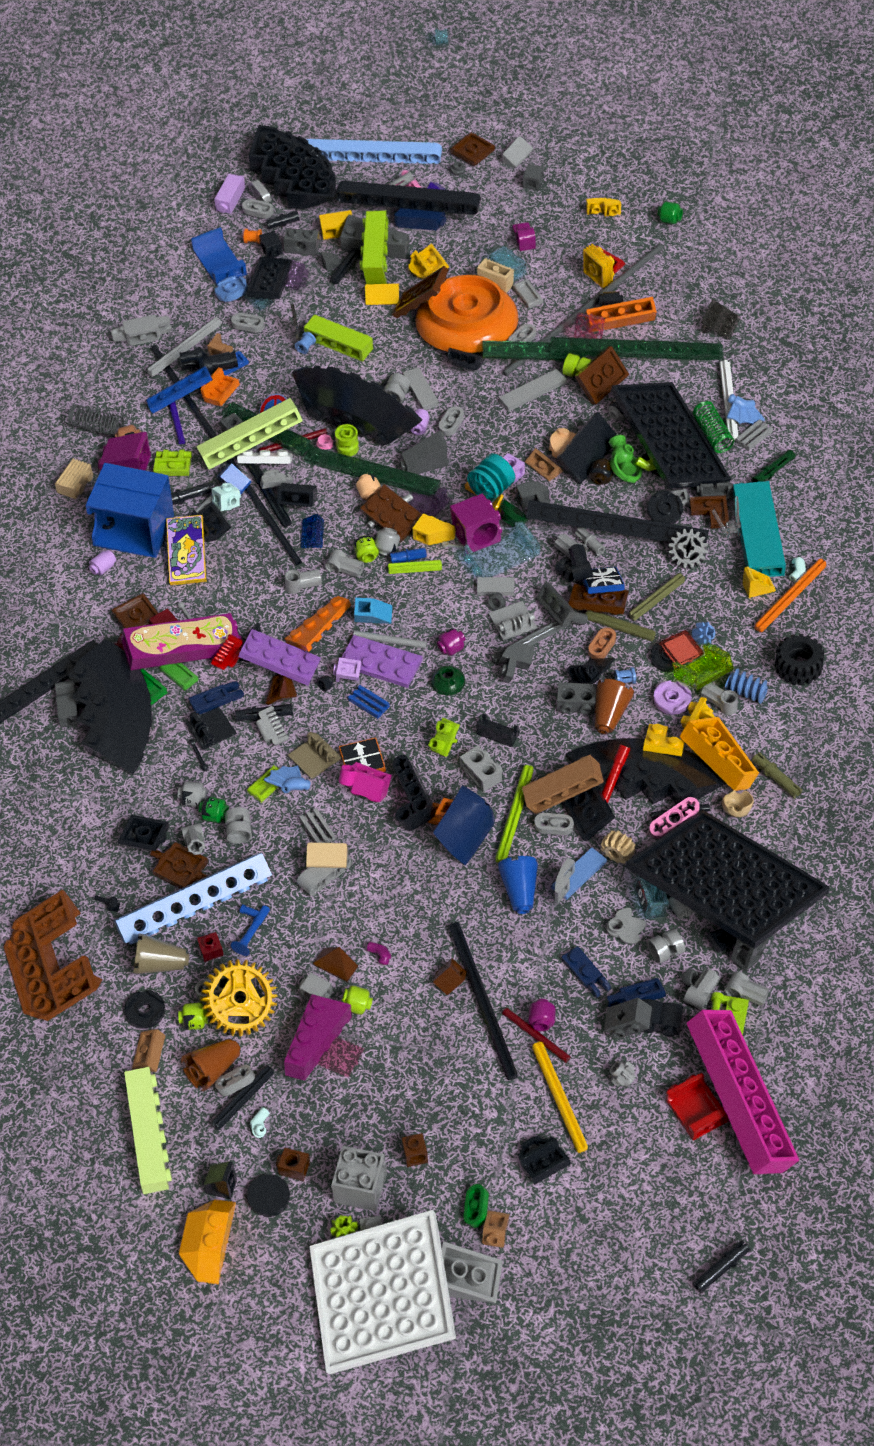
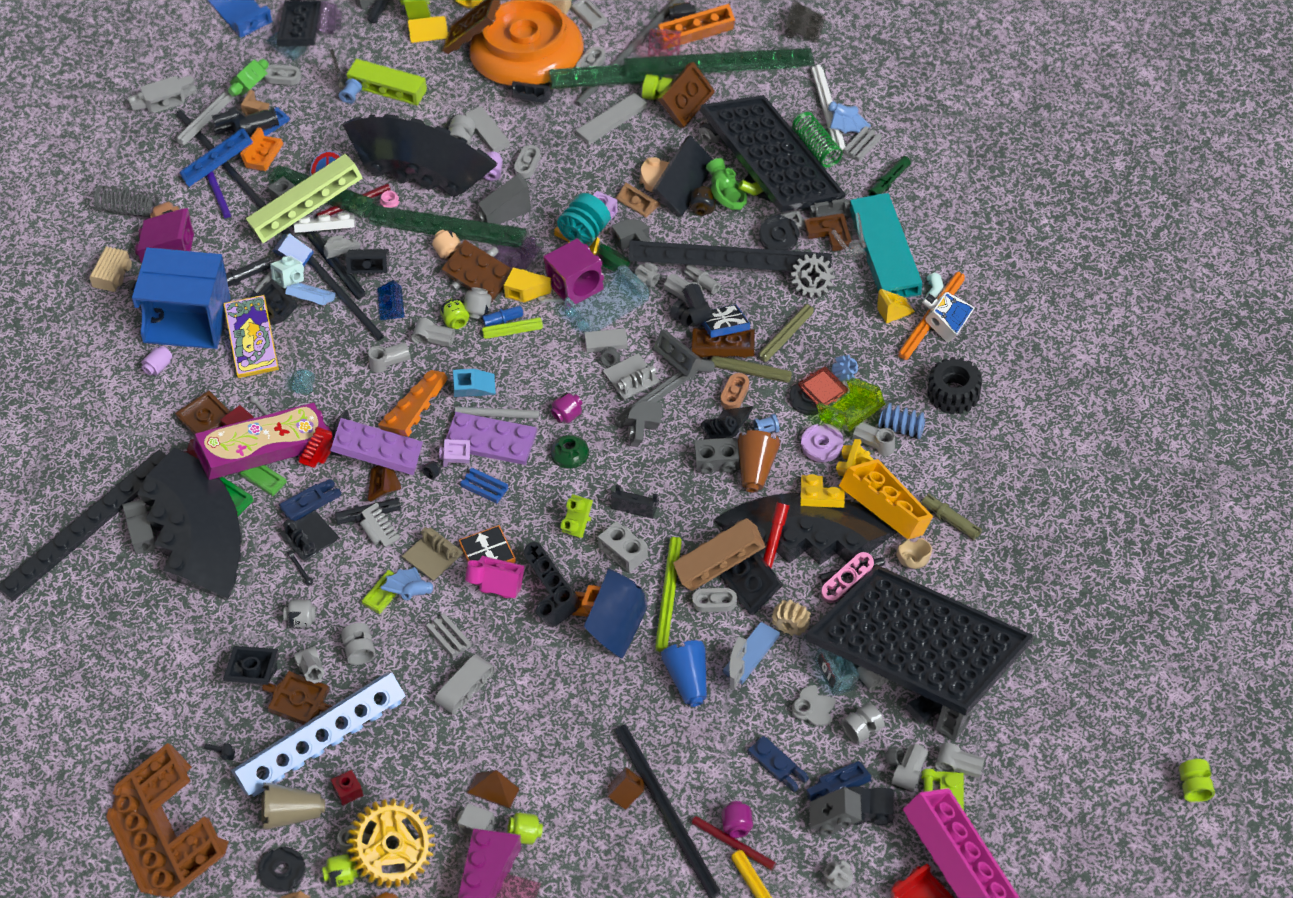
camera: 10 degrees left, 0 degrees up
(173, 462) = (221, 239): lime plate -> none
(213, 809) = (327, 628): green head -> none
(217, 322) = (248, 77): none -> bright green piece
(225, 594) = (303, 381): none -> clear light blue wheel
(231, 288) = (257, 39): medium blue tile -> none
(241, 946) = (383, 782): blue piece -> none
(242, 517) = (310, 293): none -> light blue plate
(327, 855) = (466, 666): tan slope -> none
(346, 440) = (414, 194): lime wheel -> none
(381, 950) = (544, 768): magenta arm -> none
(541, 532) = (647, 274): none -> light grey gear
(803, 595) = (947, 314): none -> torso

